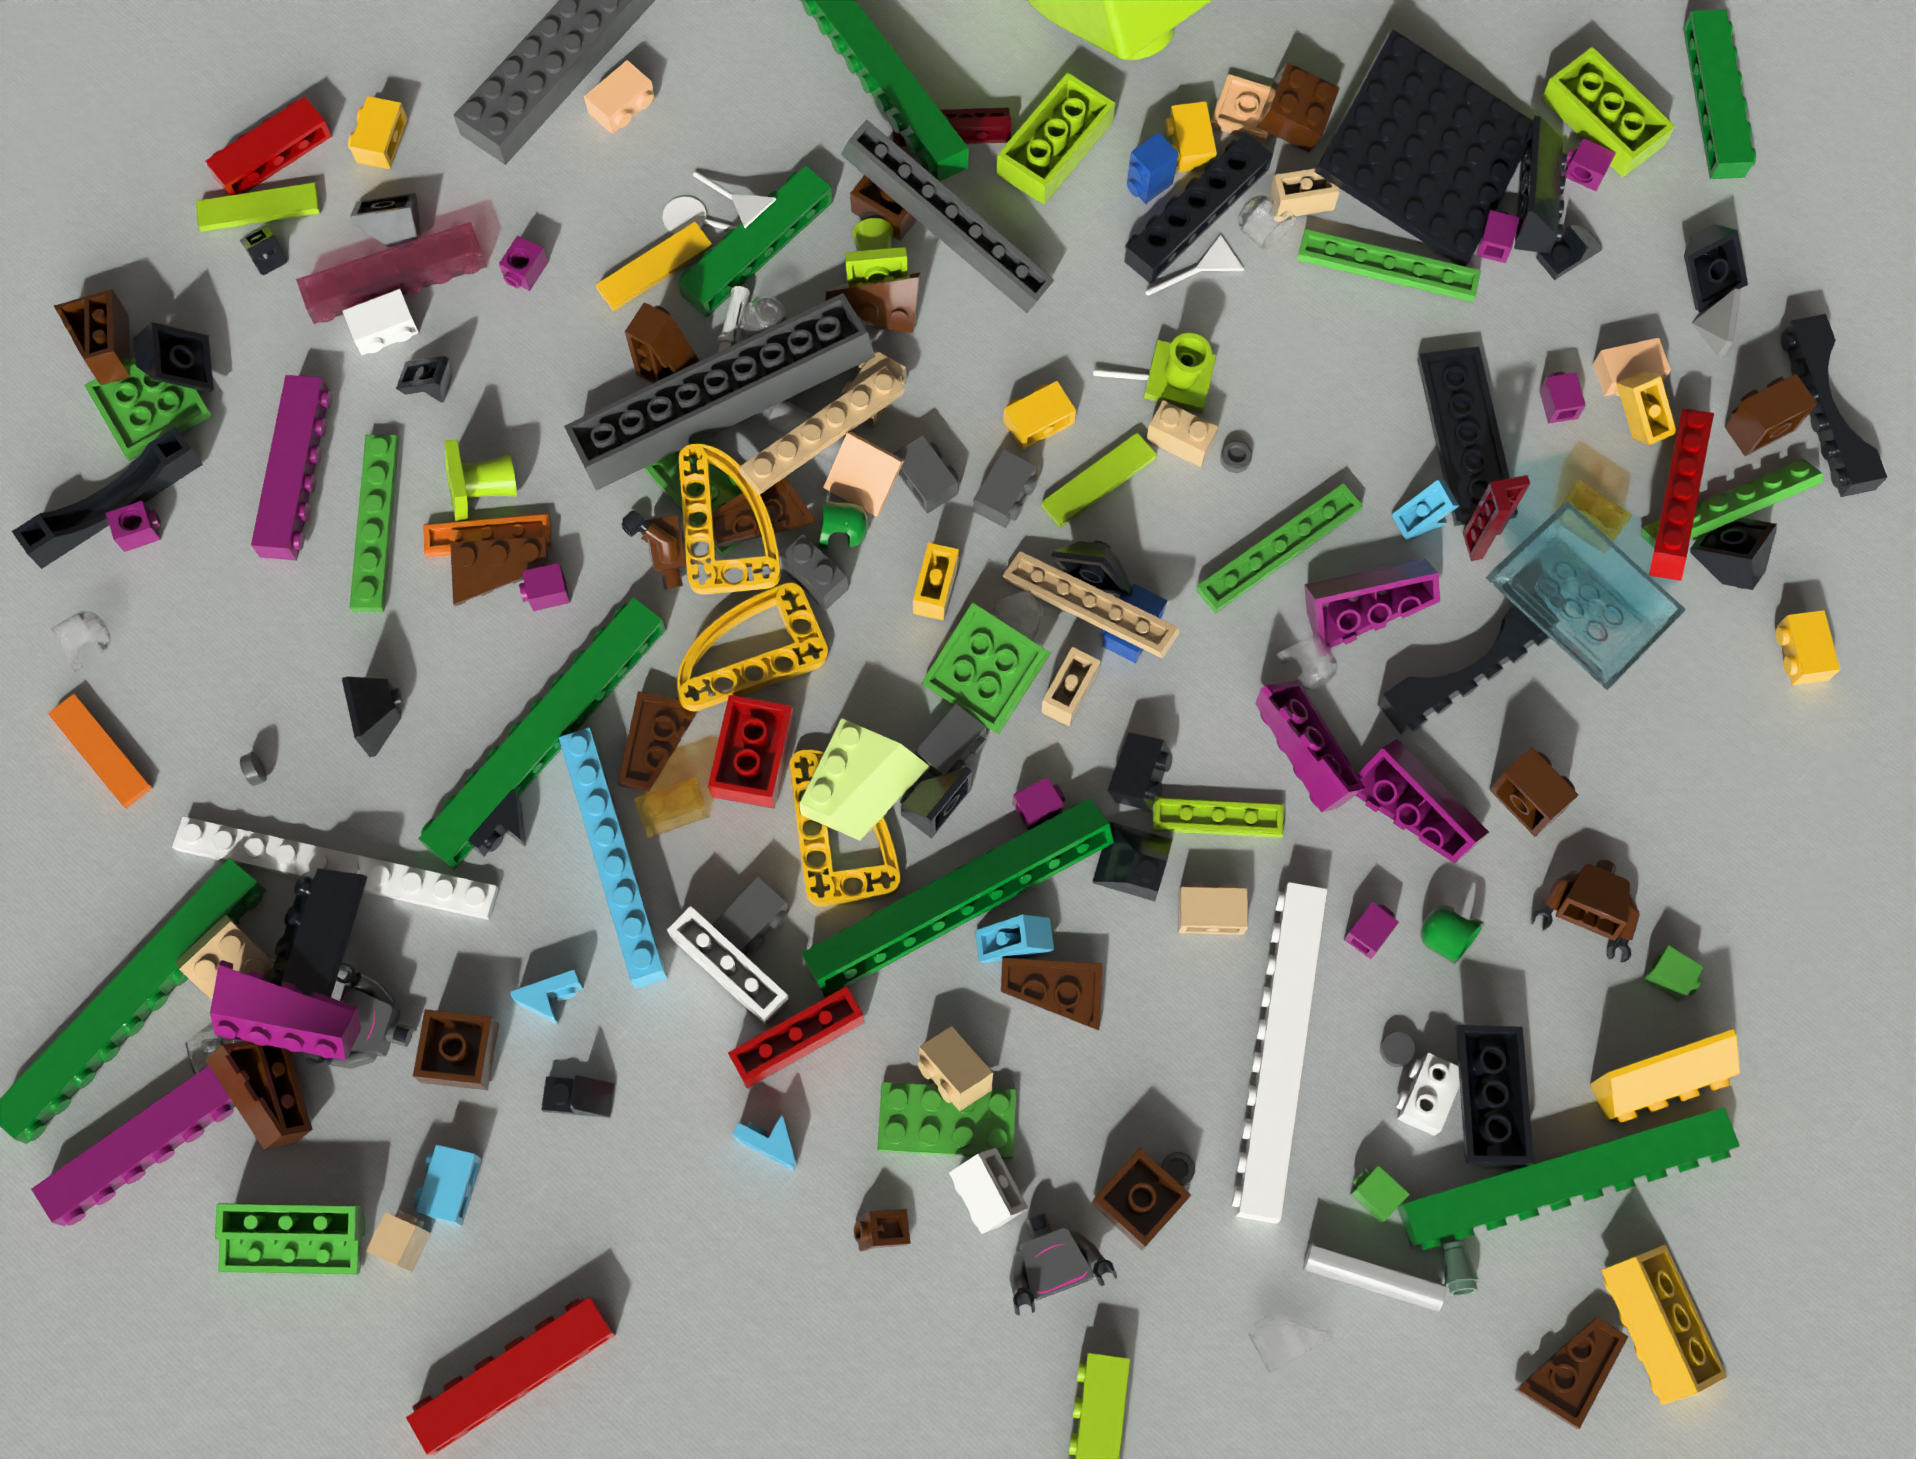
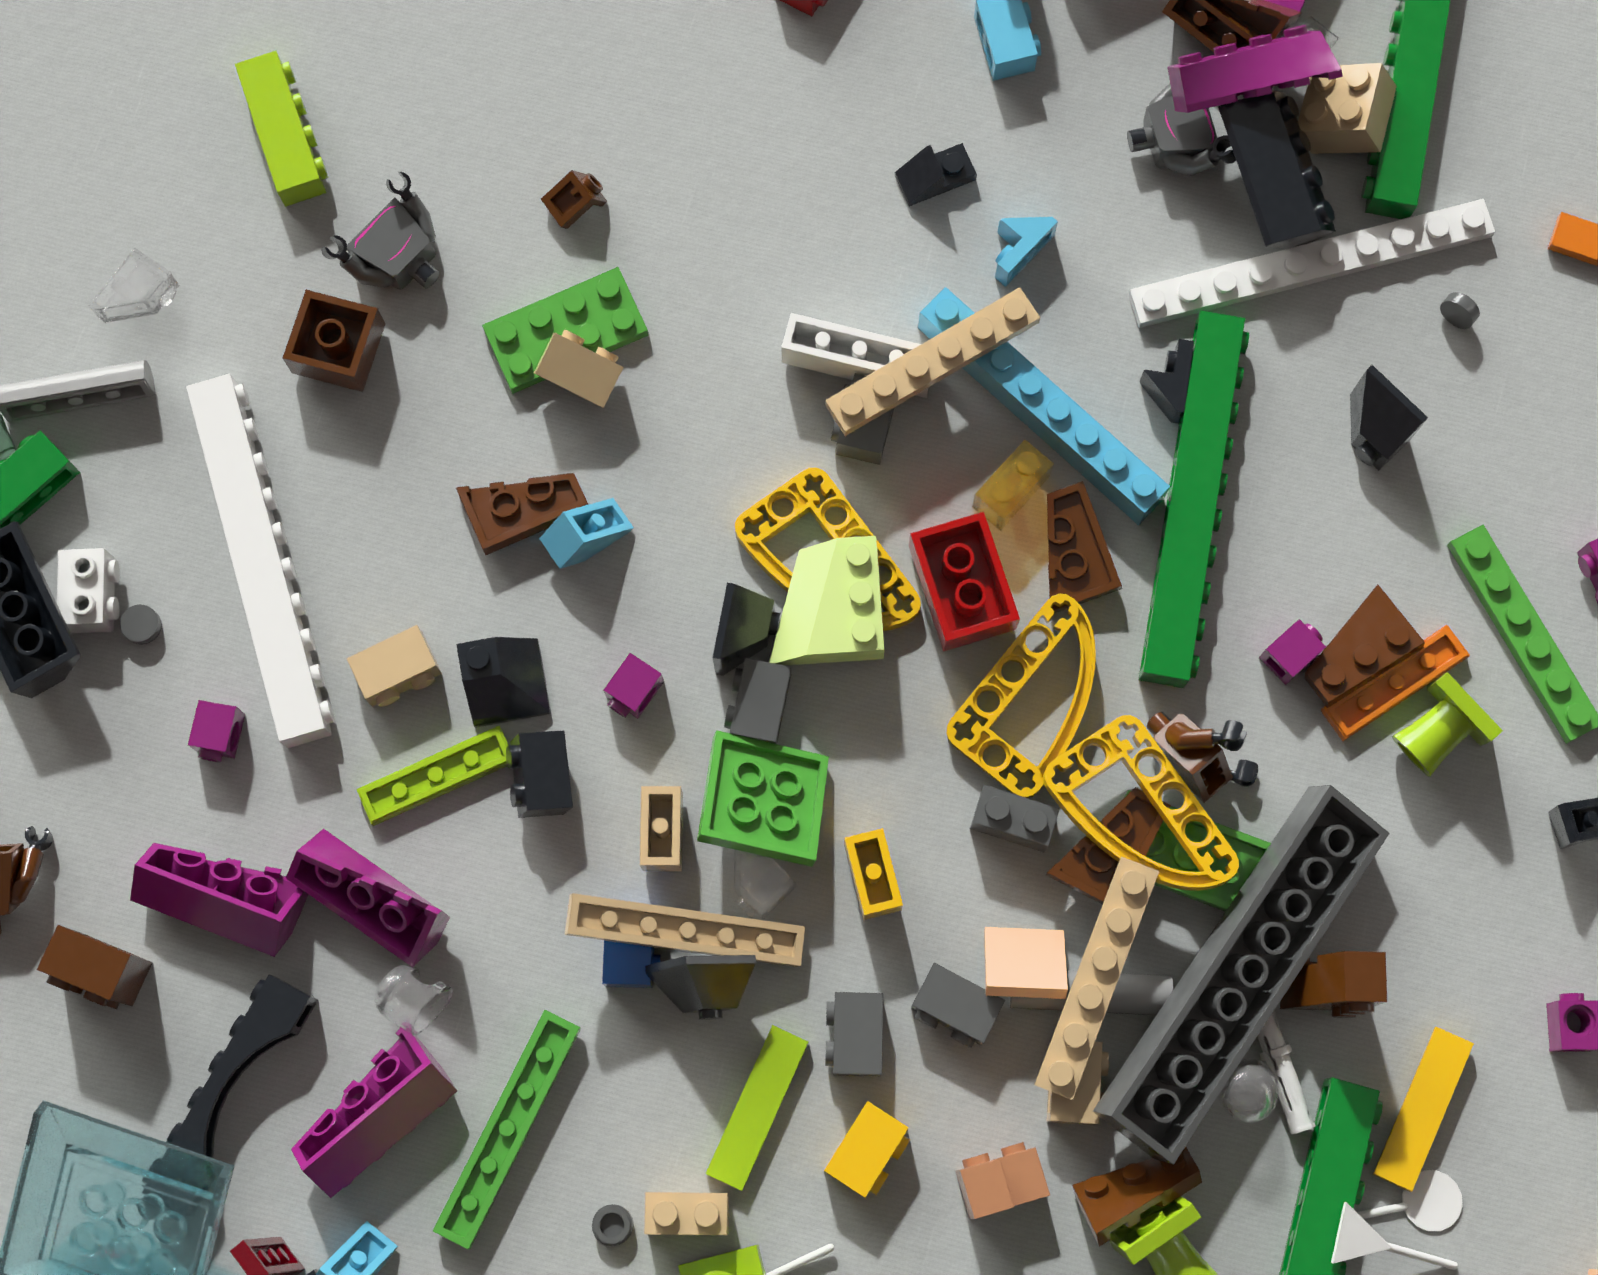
camera: 155 degrees right, 5 degrees up
(456, 1049) = (1075, 147): reddish brown brick -> none
(677, 918) = (932, 361): none -> tan plate
(776, 1147) = (715, 217): medium azure slope -> none
(796, 1037) = (752, 322): red brick -> none
(843, 518) = (1014, 892): green helmet -> none
(958, 897) = (663, 545): green brick -> none
(961, 351) = (1001, 1182): none -> nougat brick
(988, 1190) = (487, 276): white brick -> none
(1179, 1167) = (314, 397): dark grey tile -> none
(1378, 1193) = (100, 467): bright green brick -> none
(1449, 933) = (131, 761): green helmet -> none

